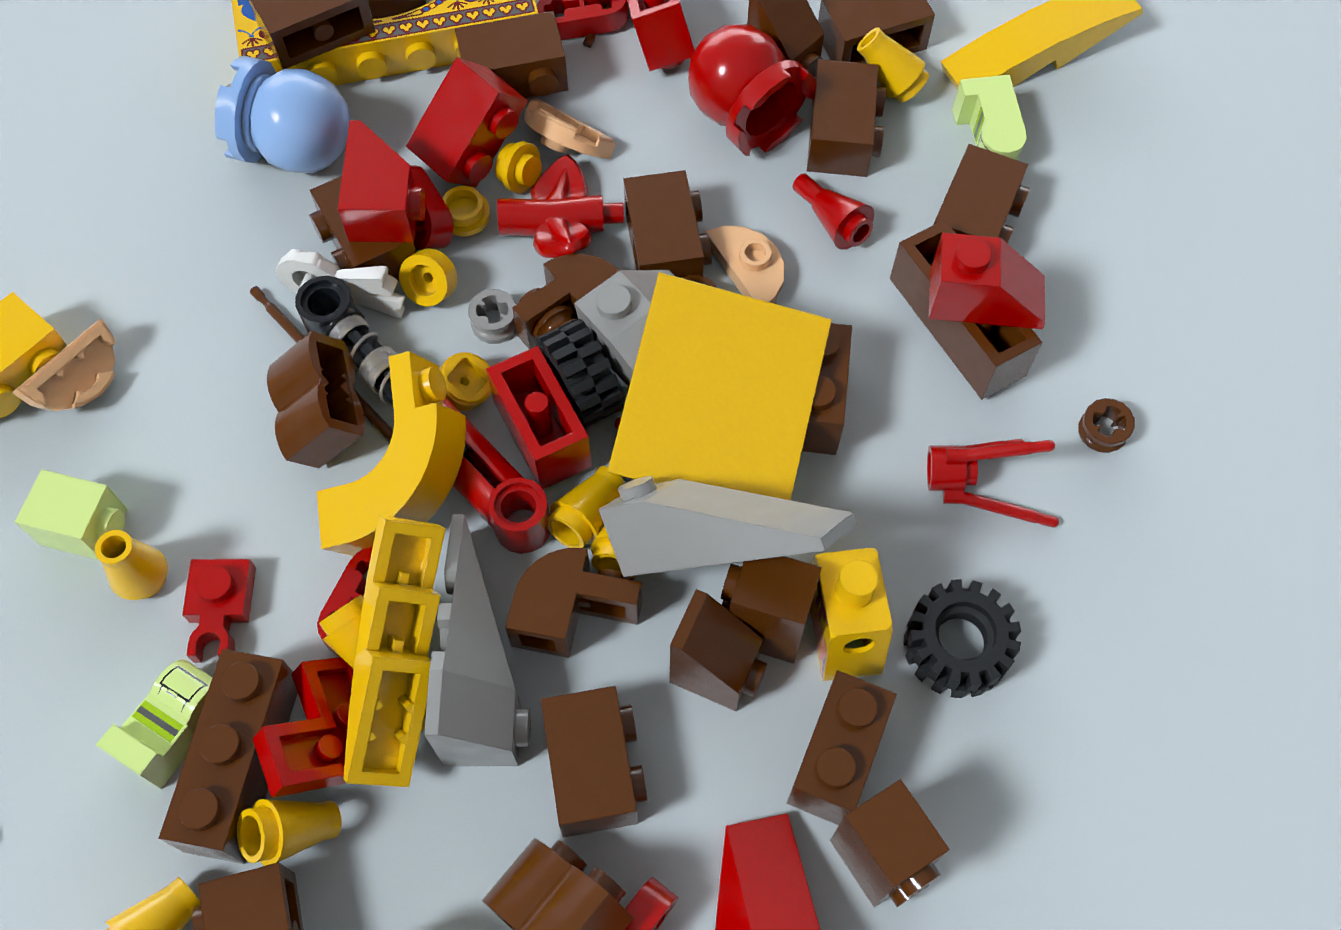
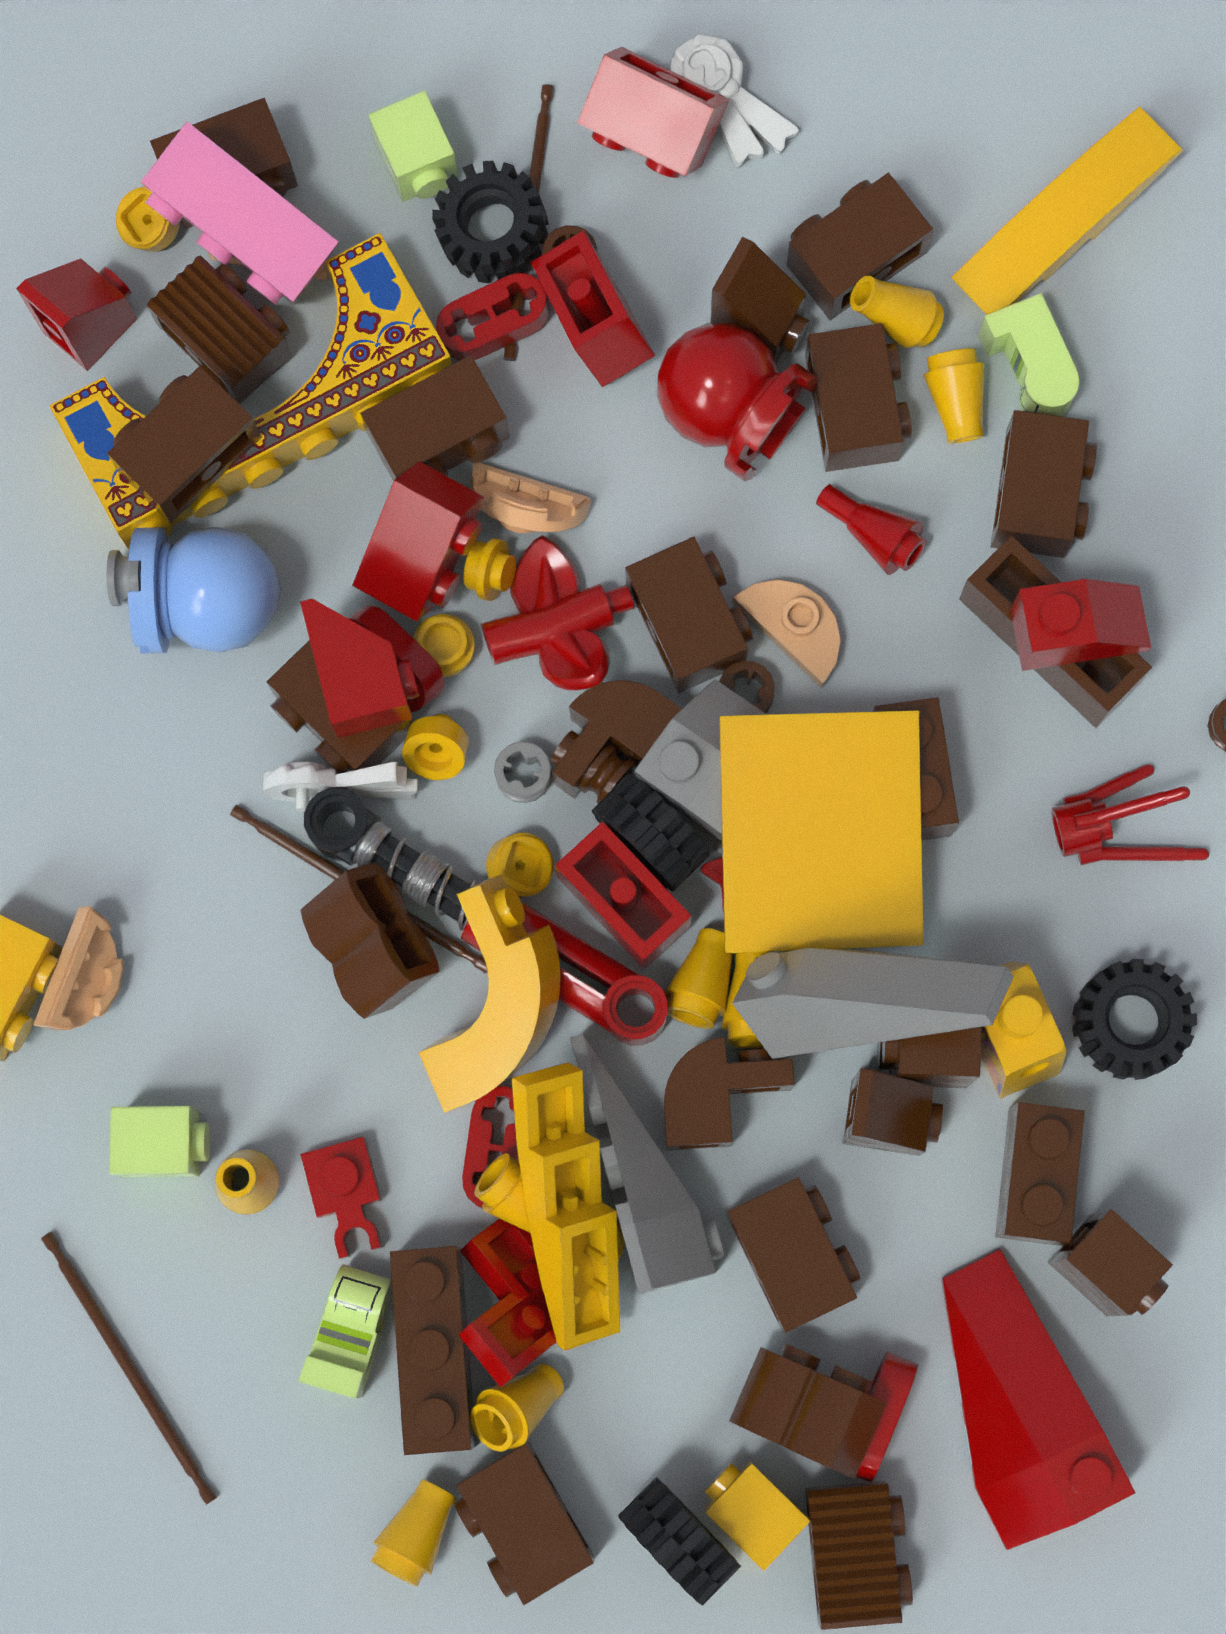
camera: 10 degrees left, 15 degrees up
(925, 132) = (957, 391): none -> yellow cone

